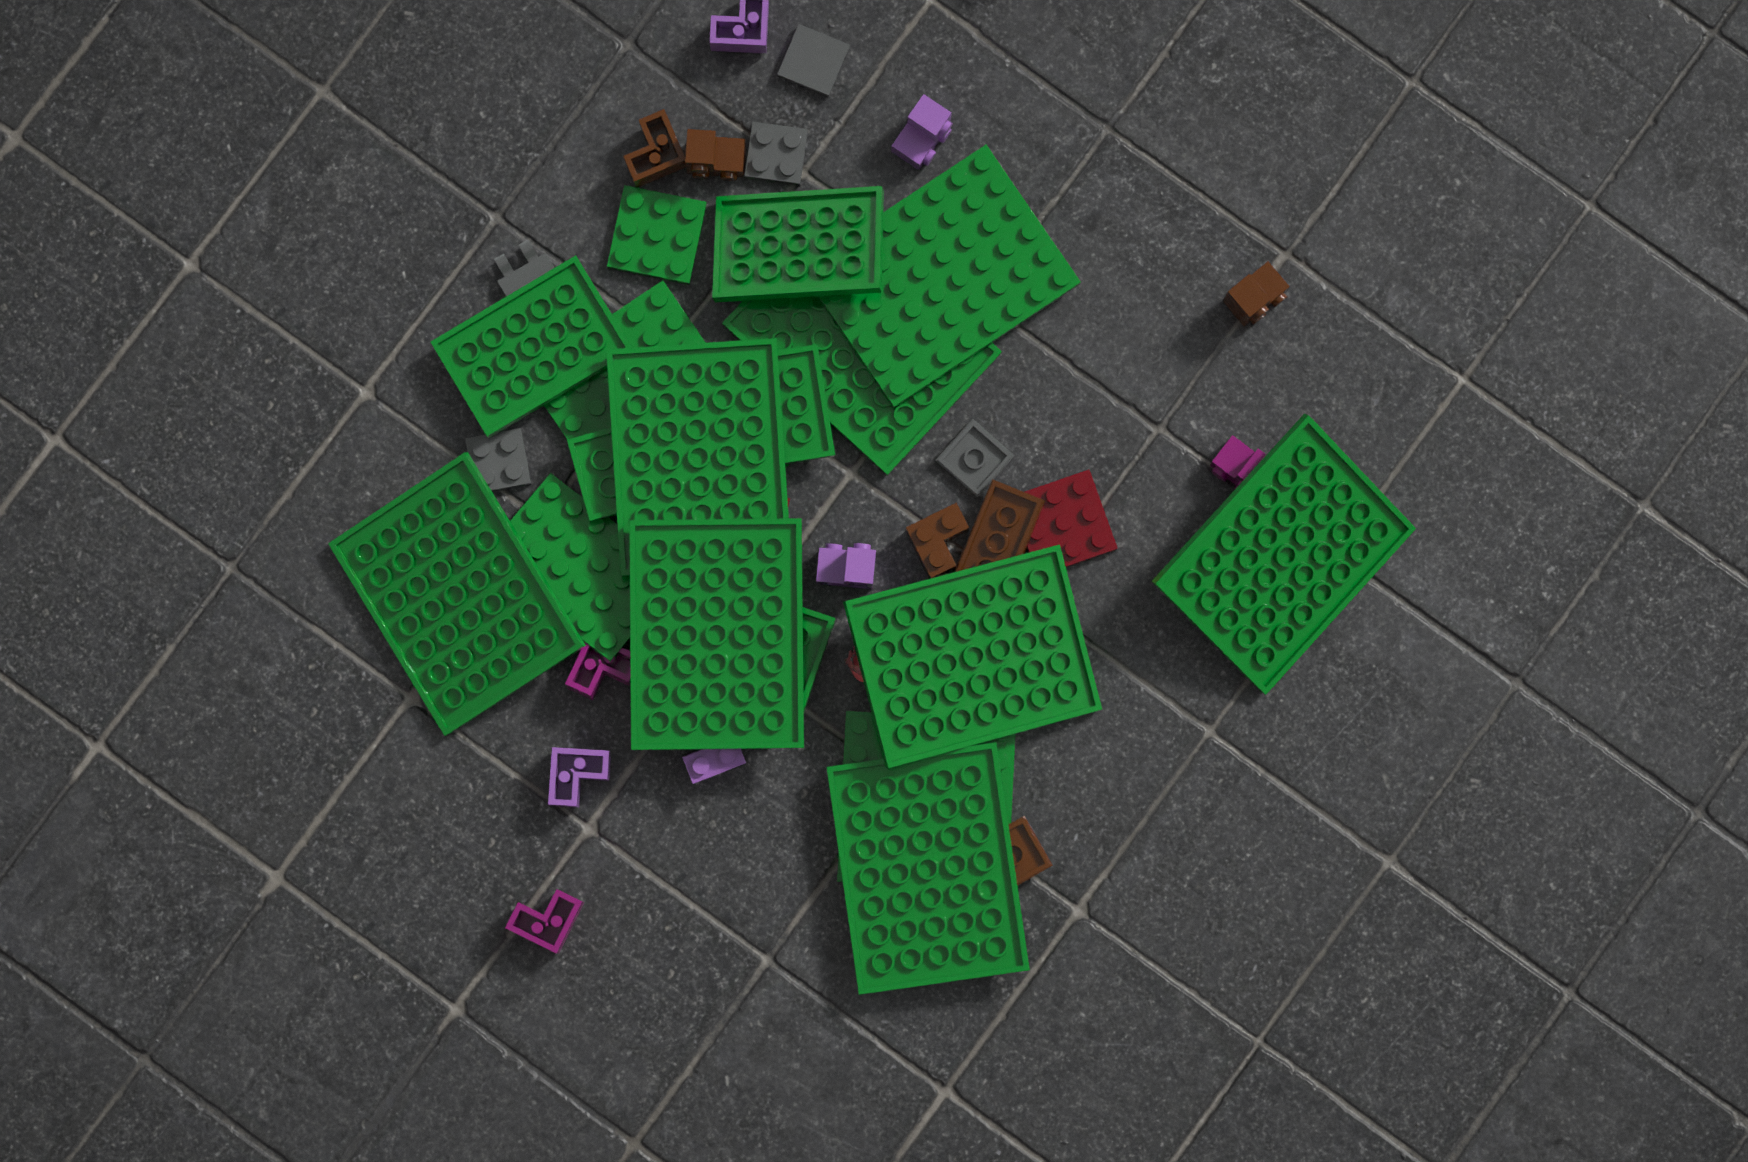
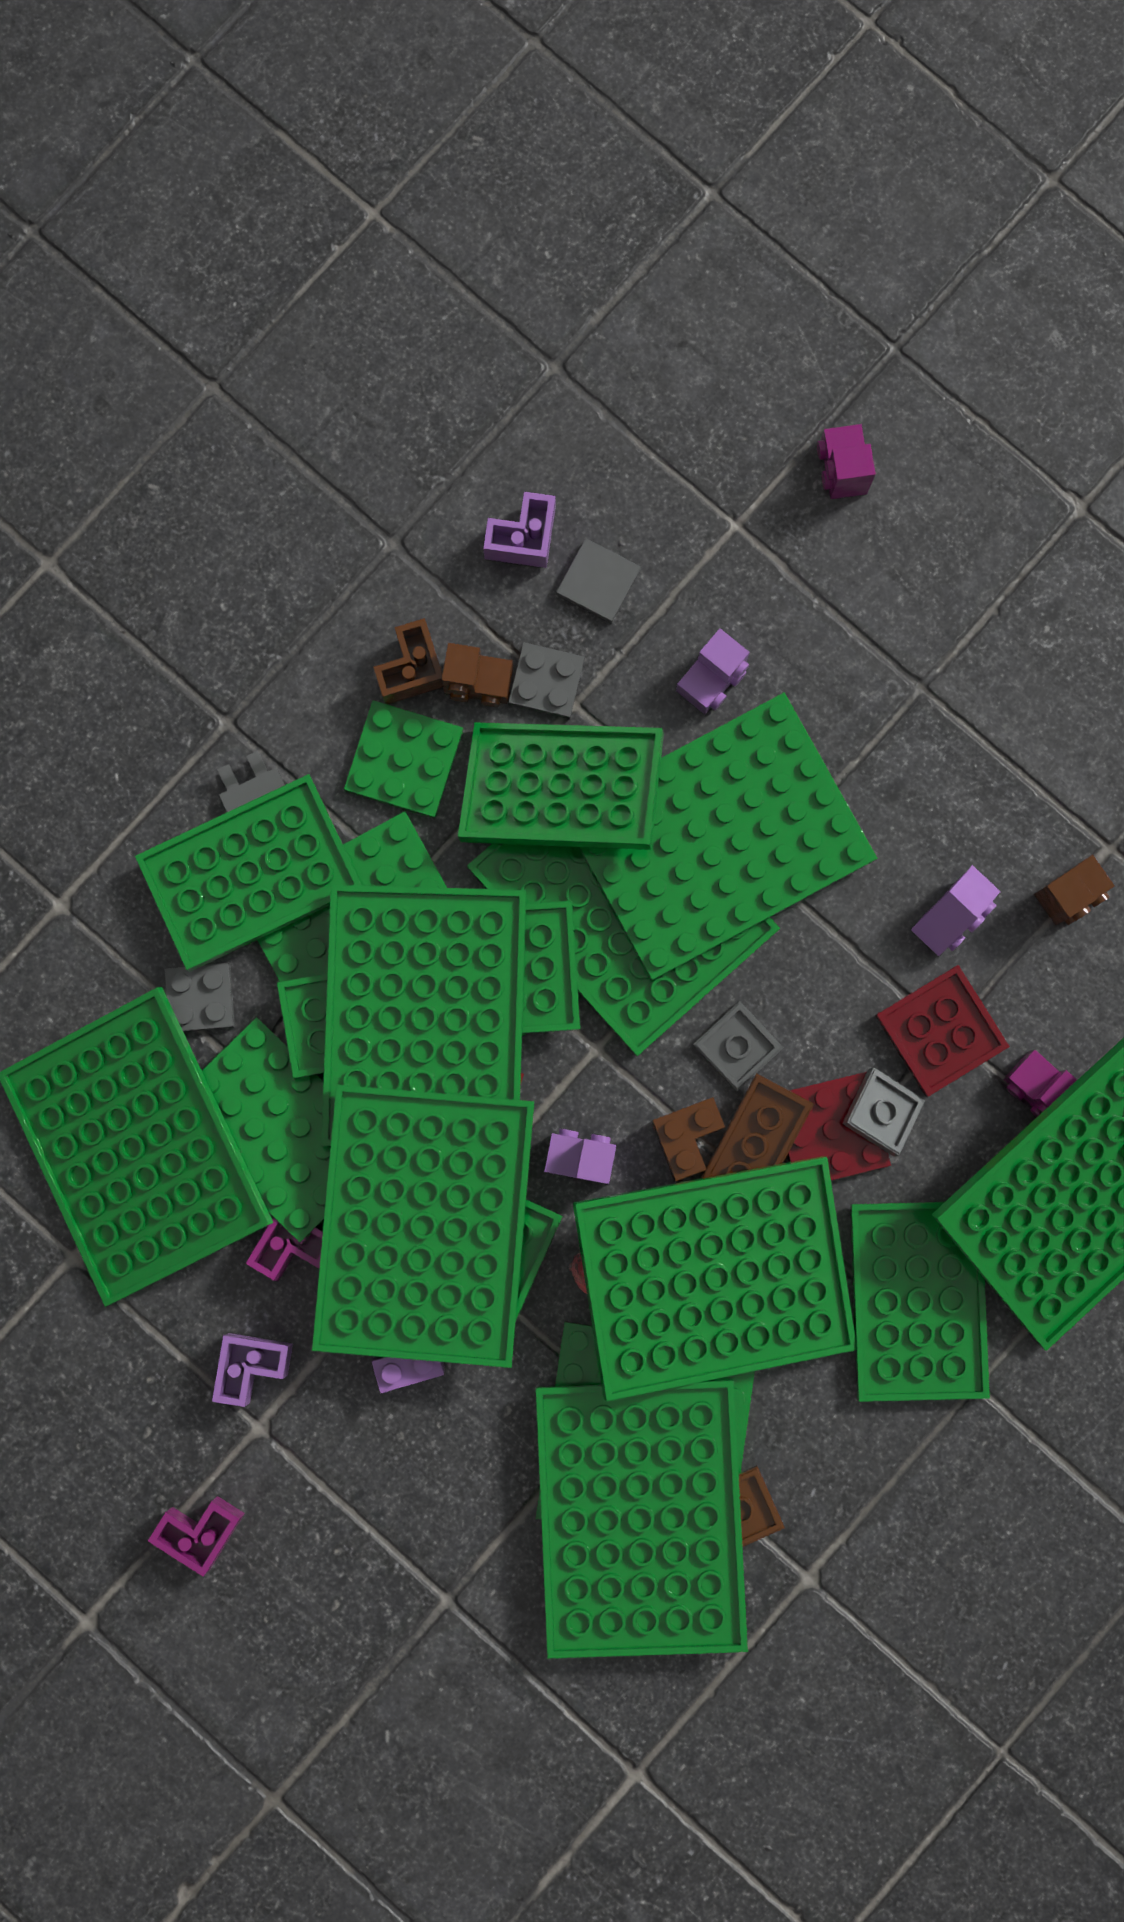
camera: 10 degrees right, 0 degrees up
(1106, 502) = (883, 1112): none -> tile
(1149, 669) = (915, 1308): none -> green plate
(1151, 427) = (942, 1031): none -> dark red plate
(1155, 319) = (956, 911): none -> medium lavender brick

